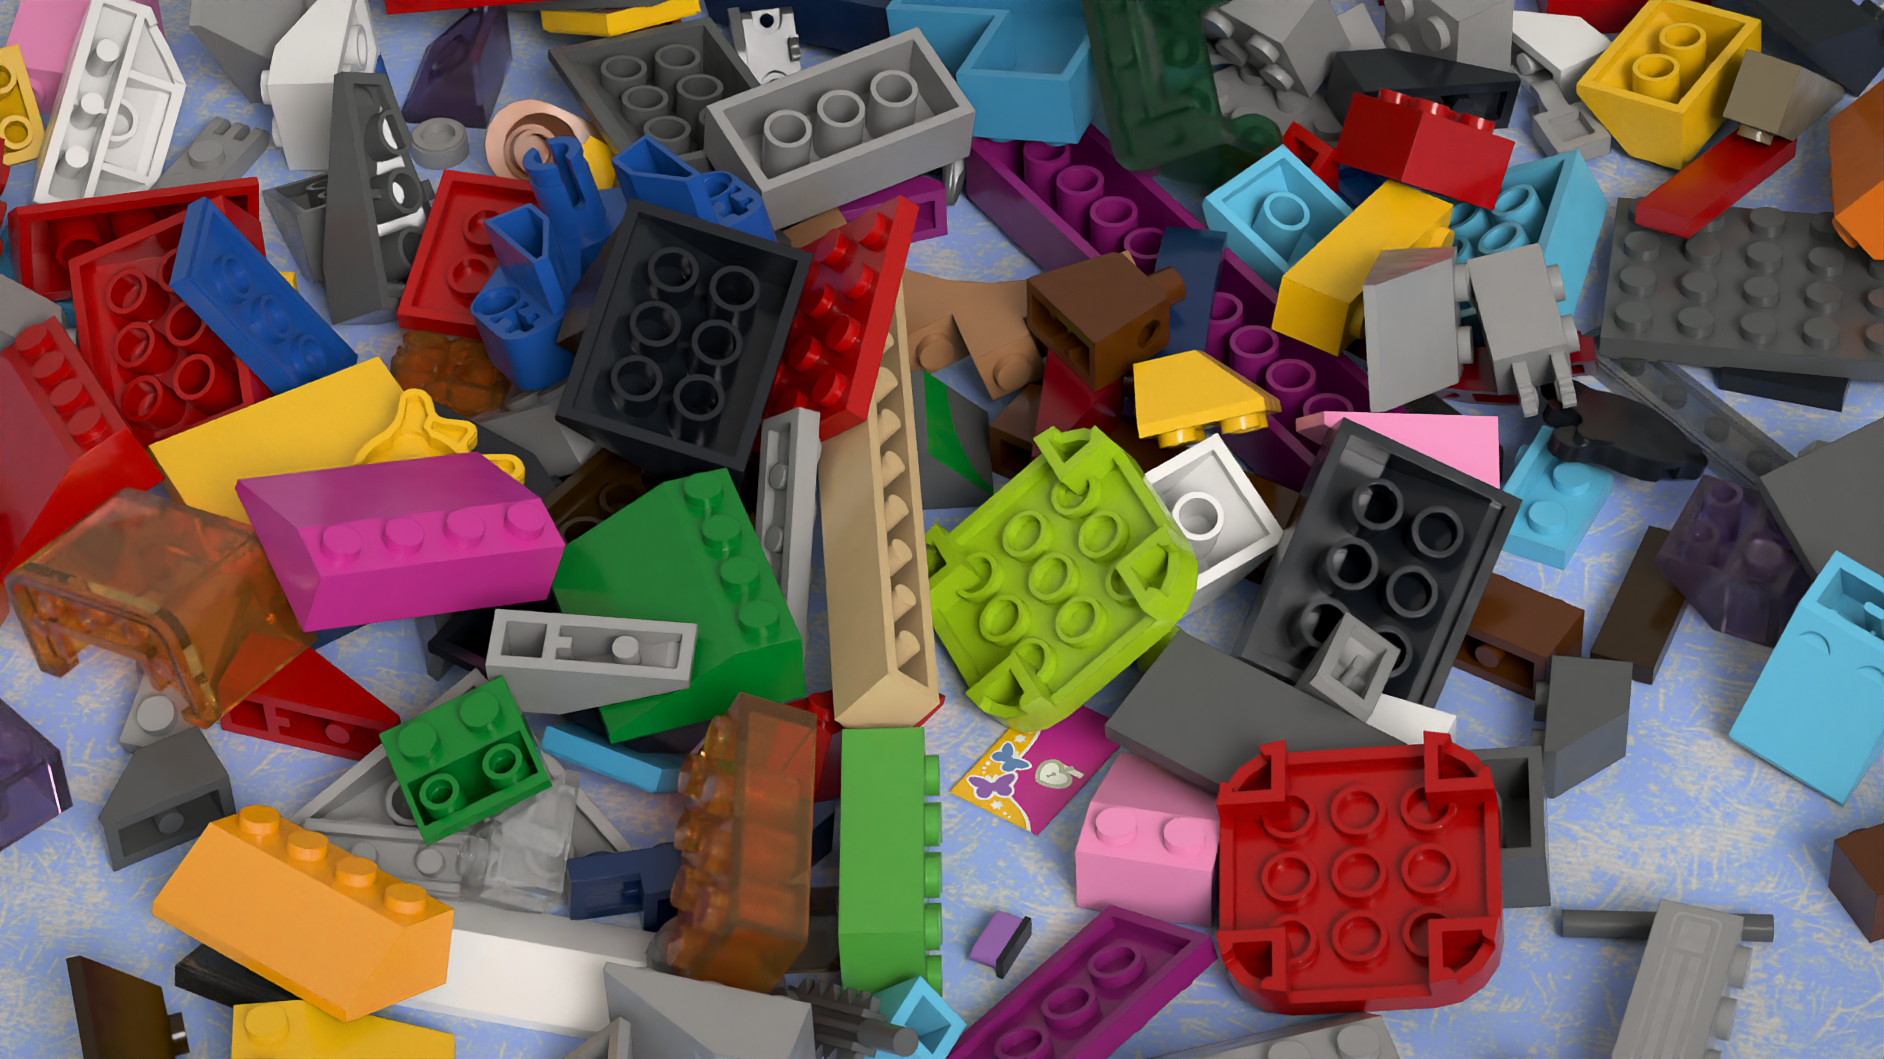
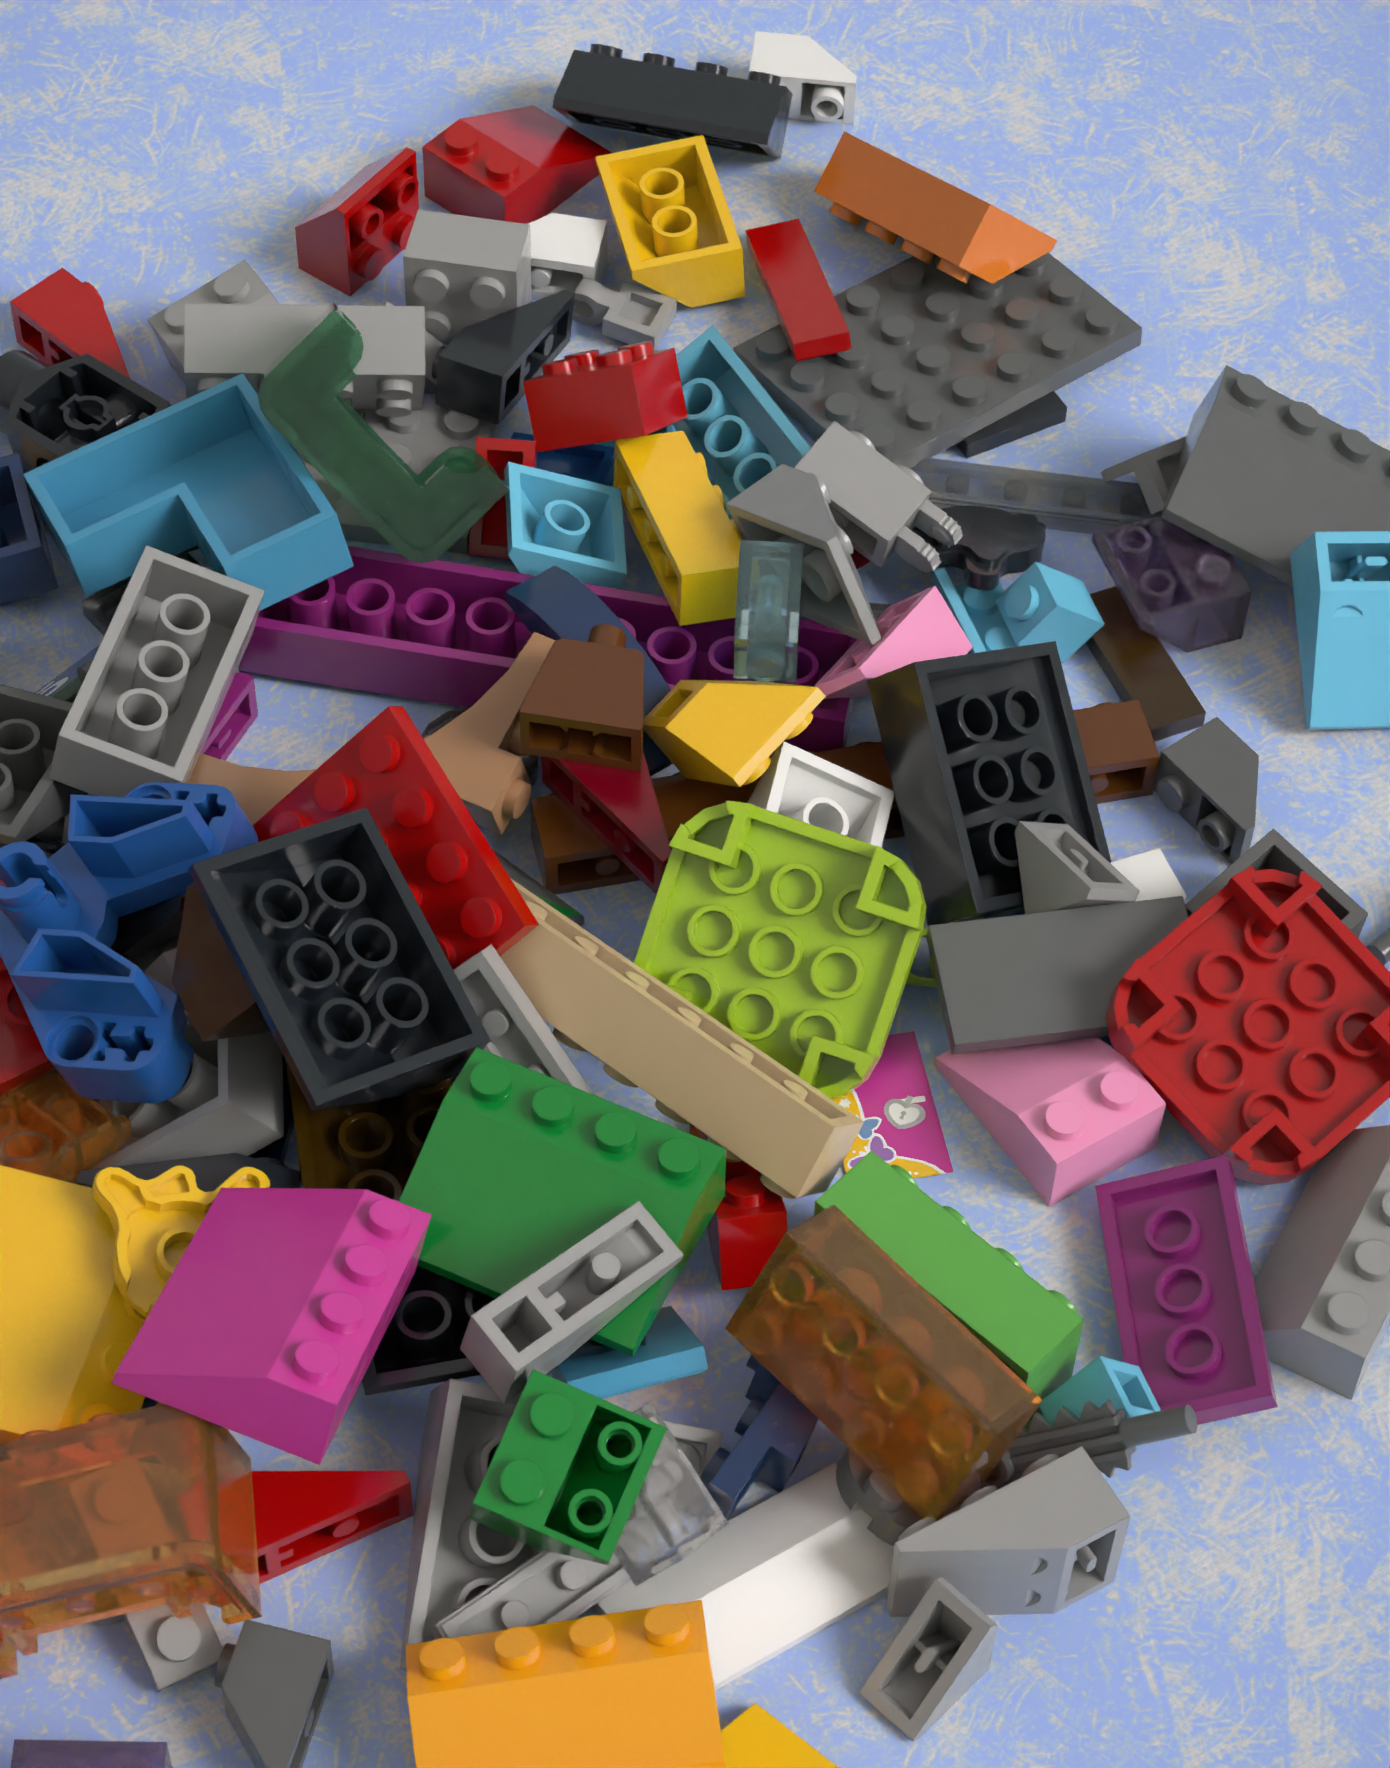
camera: 50 degrees left, 10 degrees up
(1002, 941) = (1044, 1268): medium lavender piece -> none
(1320, 344) = (768, 611): none -> clear light blue slope
(1605, 513) = (1049, 608): none -> medium azure brick
(1778, 98) = (771, 194): dark tan slope -> none

